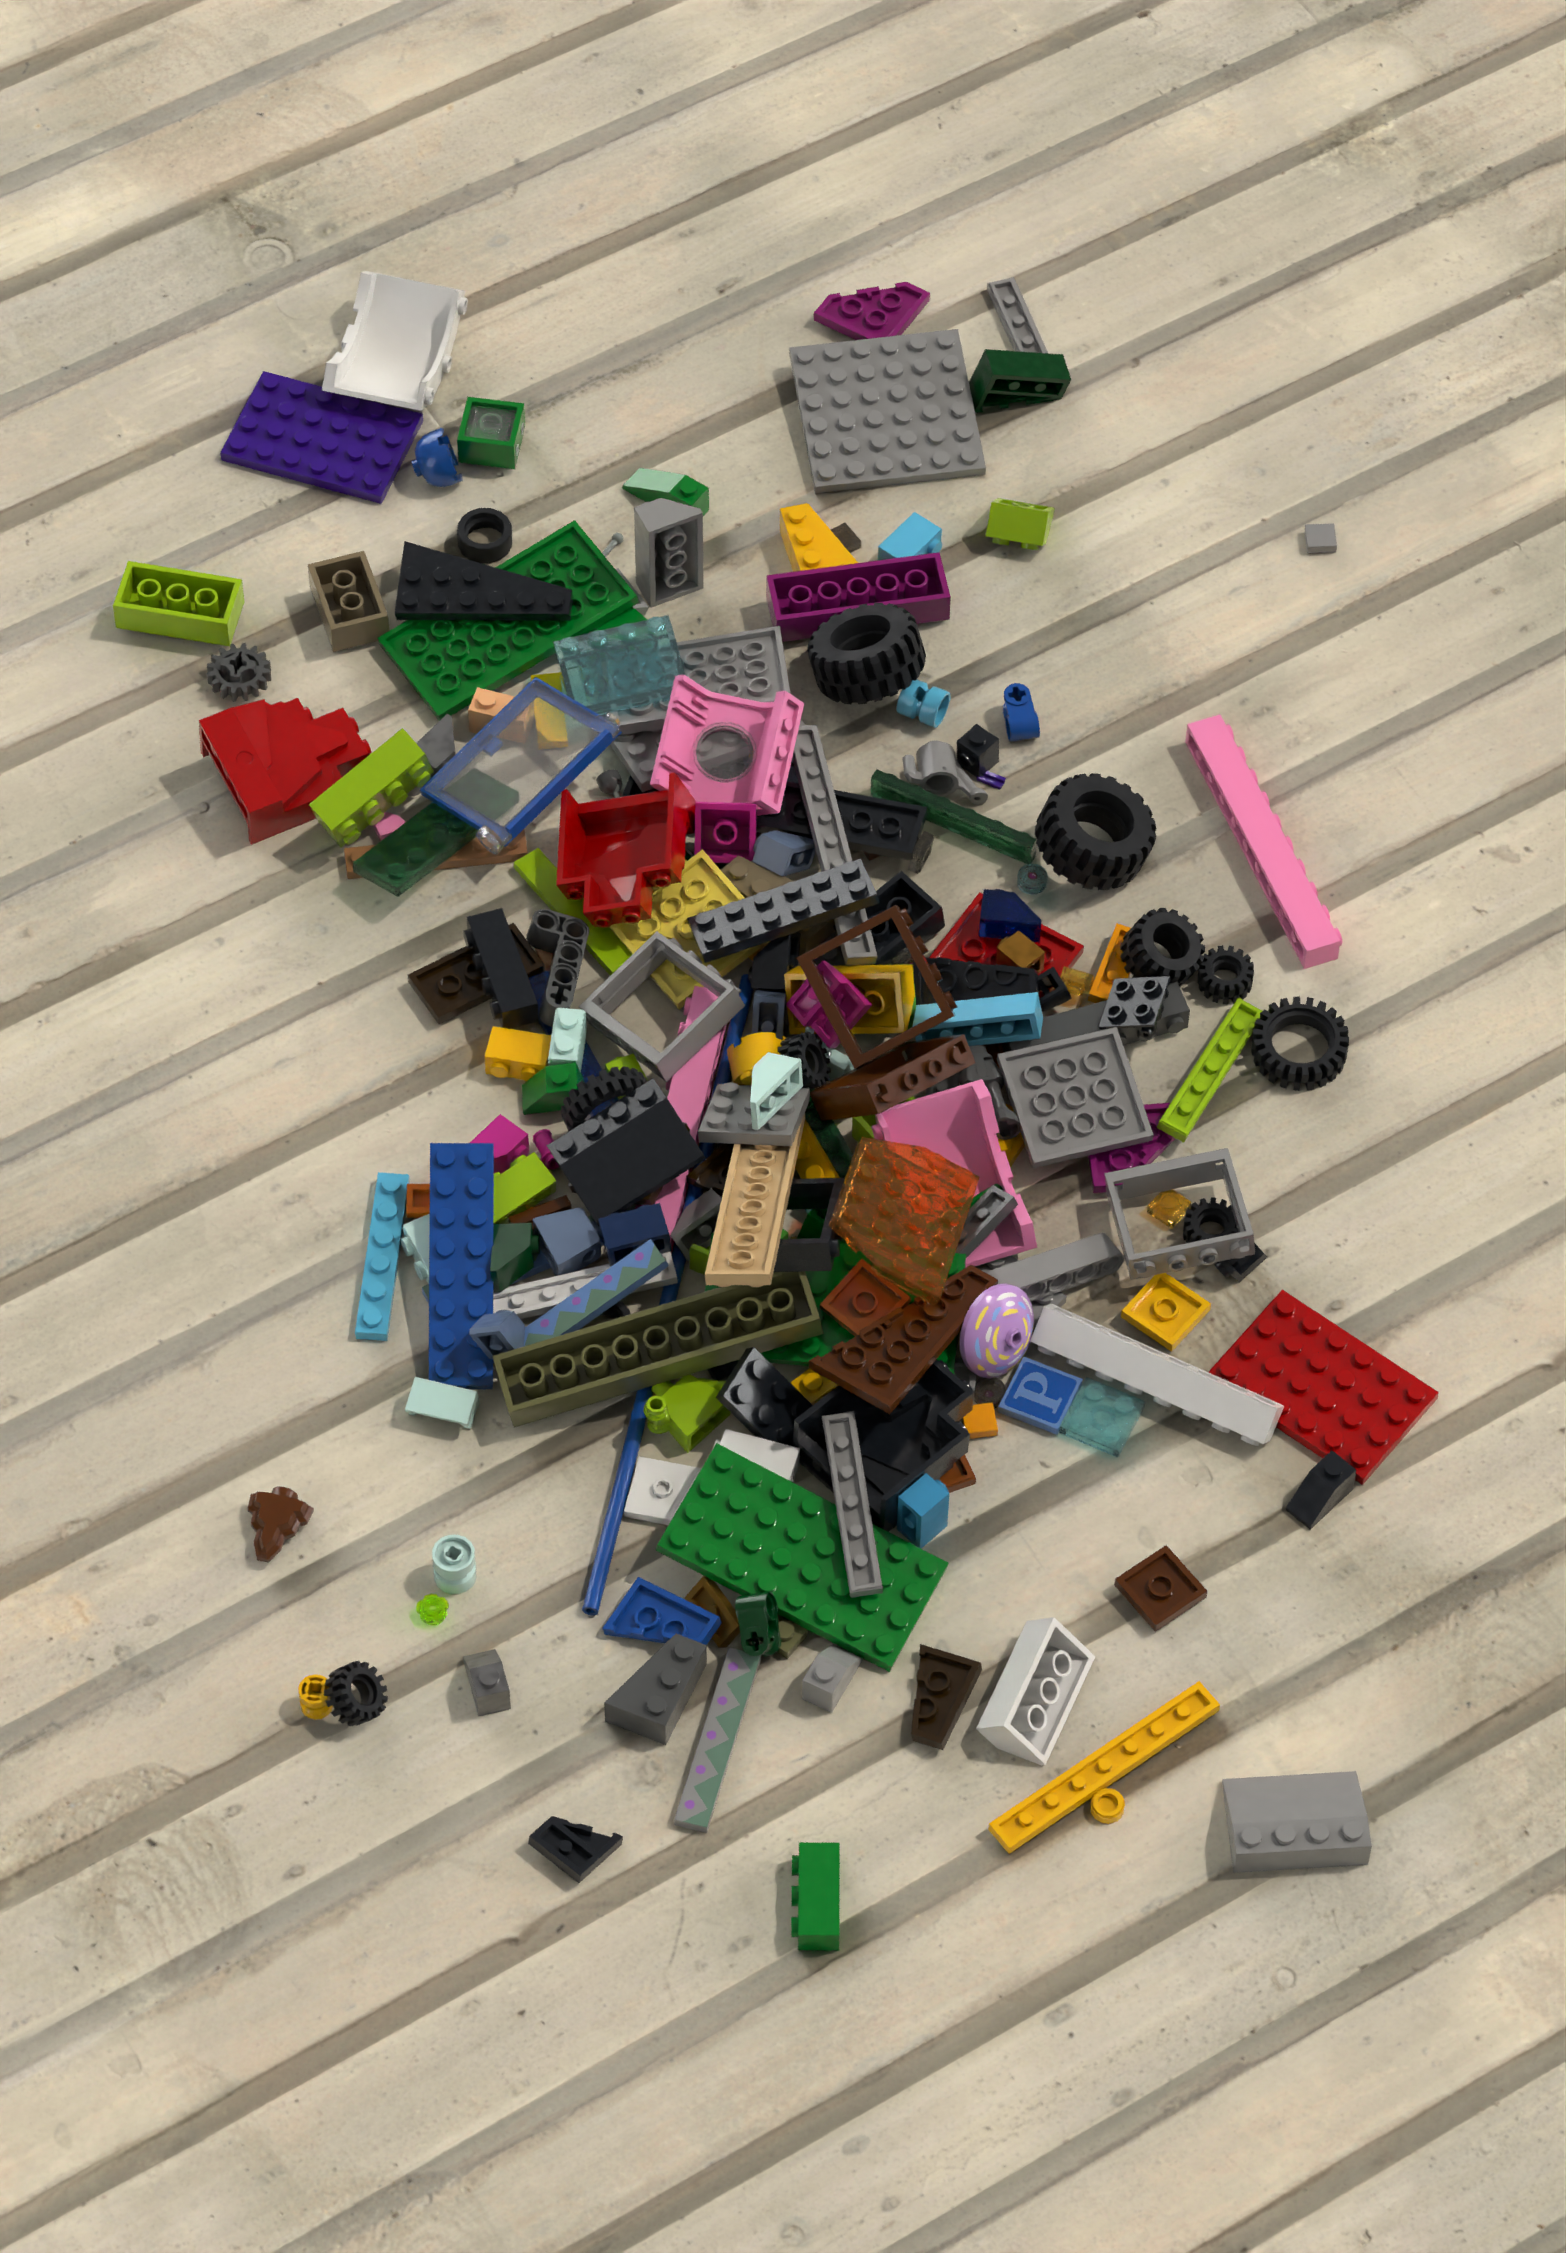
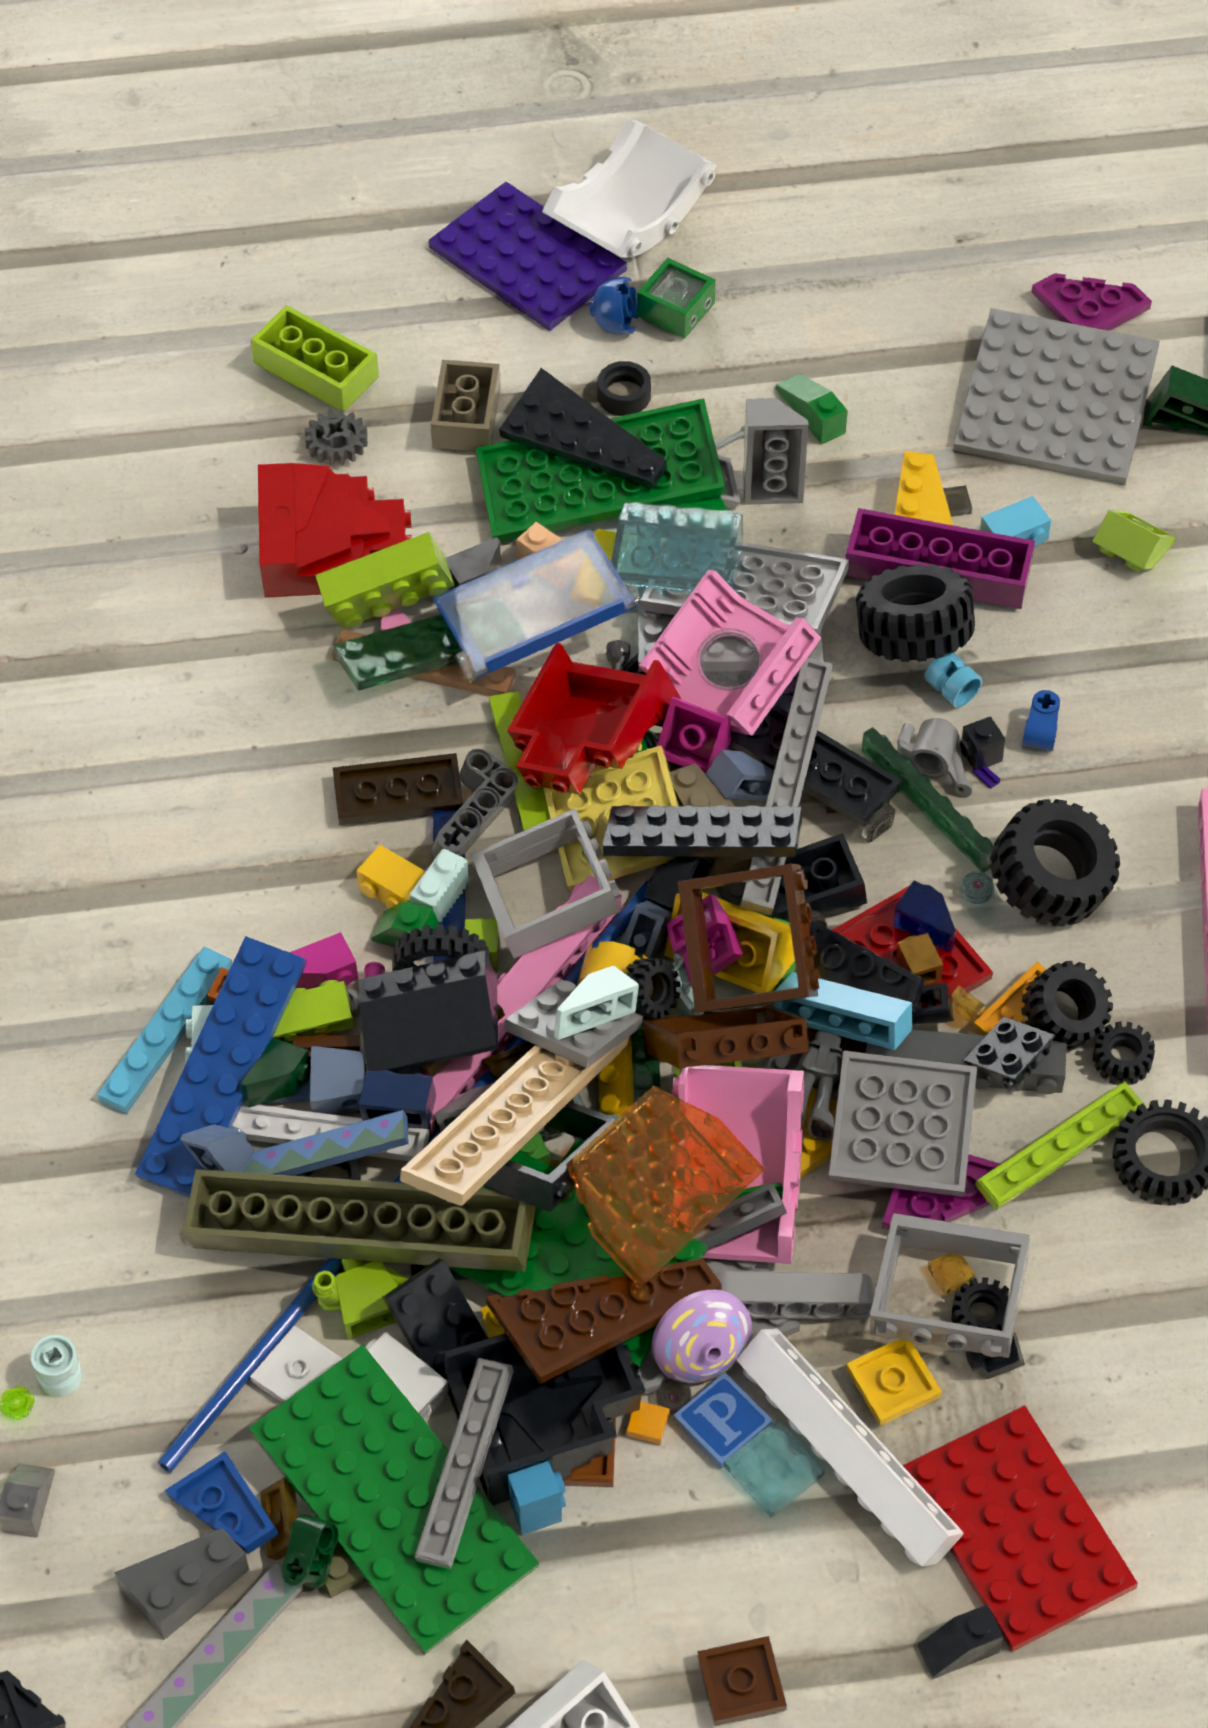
camera: 25 degrees right, 0 degrees up
(442, 1402) = (137, 1197): light aqua hinge -> none
(501, 969) = (416, 793): black brick -> none
(829, 1677) = (359, 1634): light grey slope -> none
(862, 1299) = (575, 1254): dark orange plate -> none

